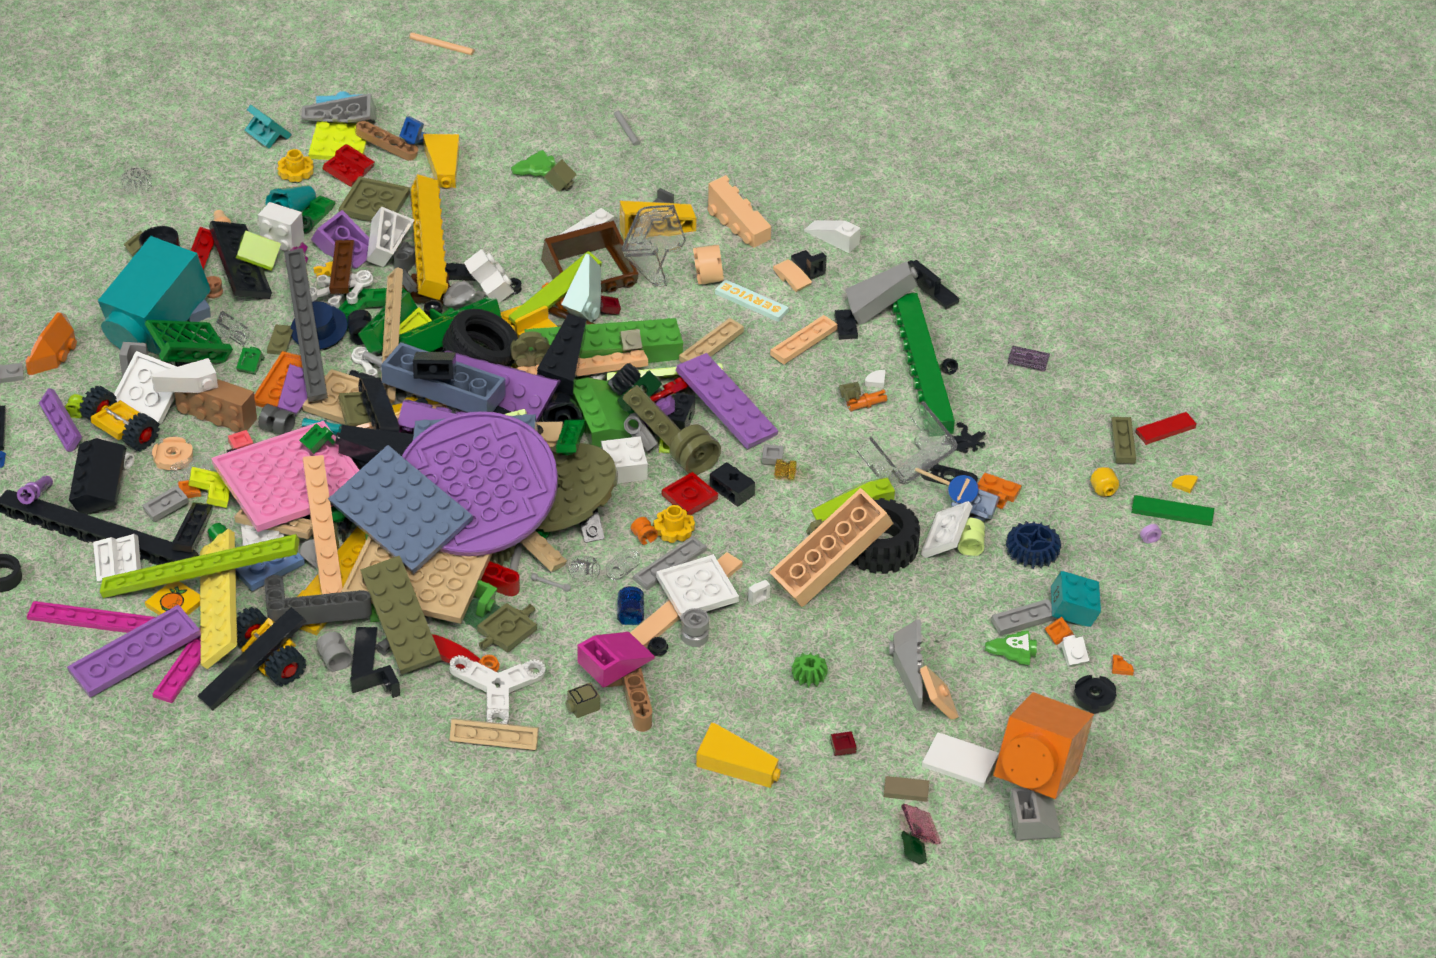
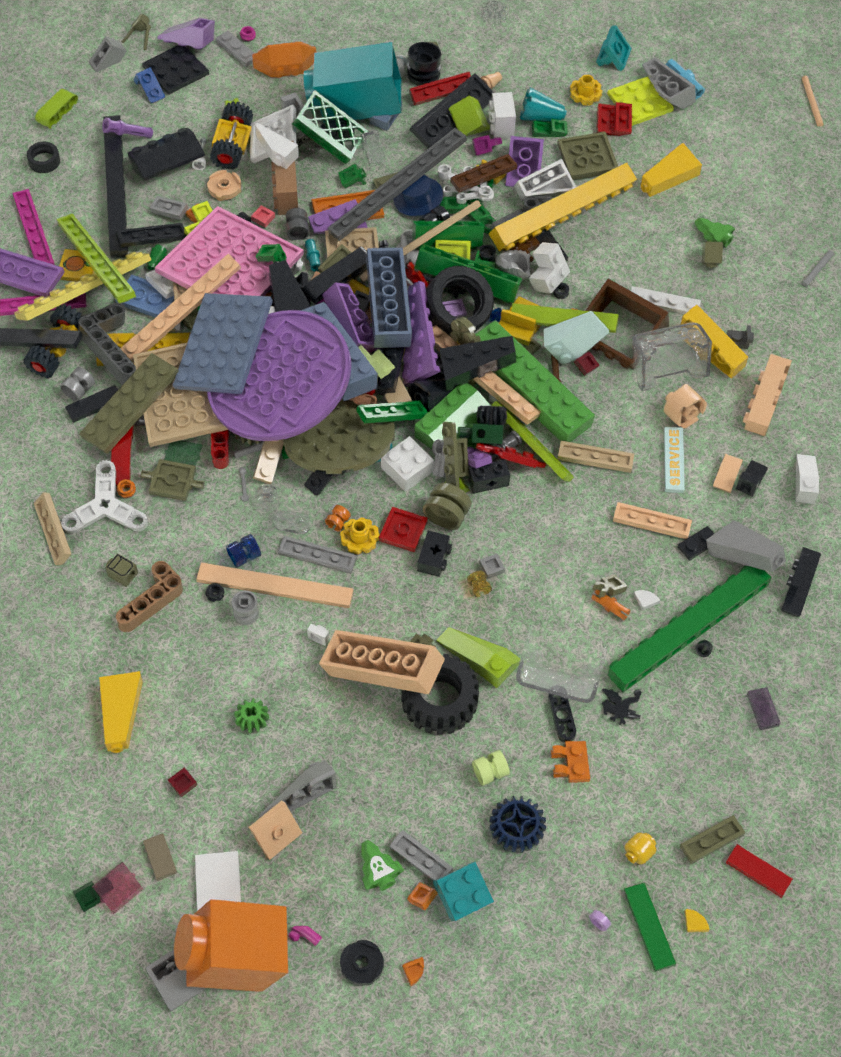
camera: 60 degrees right, 15 degrees up
(60, 420) = (213, 106): medium lavender tile -> none
(116, 556) = (92, 210): white slope -> none
(186, 466) = (215, 199): clear plate -> none
(215, 285) = (414, 113): nougat wheel -> none
(309, 223) = (526, 129): dark green plate -> none
(368, 132) = (661, 126): medium nougat beam -> none
(381, 676) = (71, 427): black bracket -> none
(412, 131) = (677, 136): blue bracket -> none
(434, 365) = (378, 279): black brick -> none
(487, 598) = (189, 451): bright green bracket -> none
(612, 656) = (163, 564): dark pink slope -> none
(630, 340) = (535, 396): plate -> none
(697, 585) = (292, 586): white plate -> none
(726, 400) = (526, 500): medium lavender plate -> none
(946, 529) = (484, 743): white tile -> none
(960, 489) = (539, 730): blue piece -> none
(983, 505) = (536, 751): sand blue bracket -> none
(1074, 650) = (405, 919): white bracket -> none

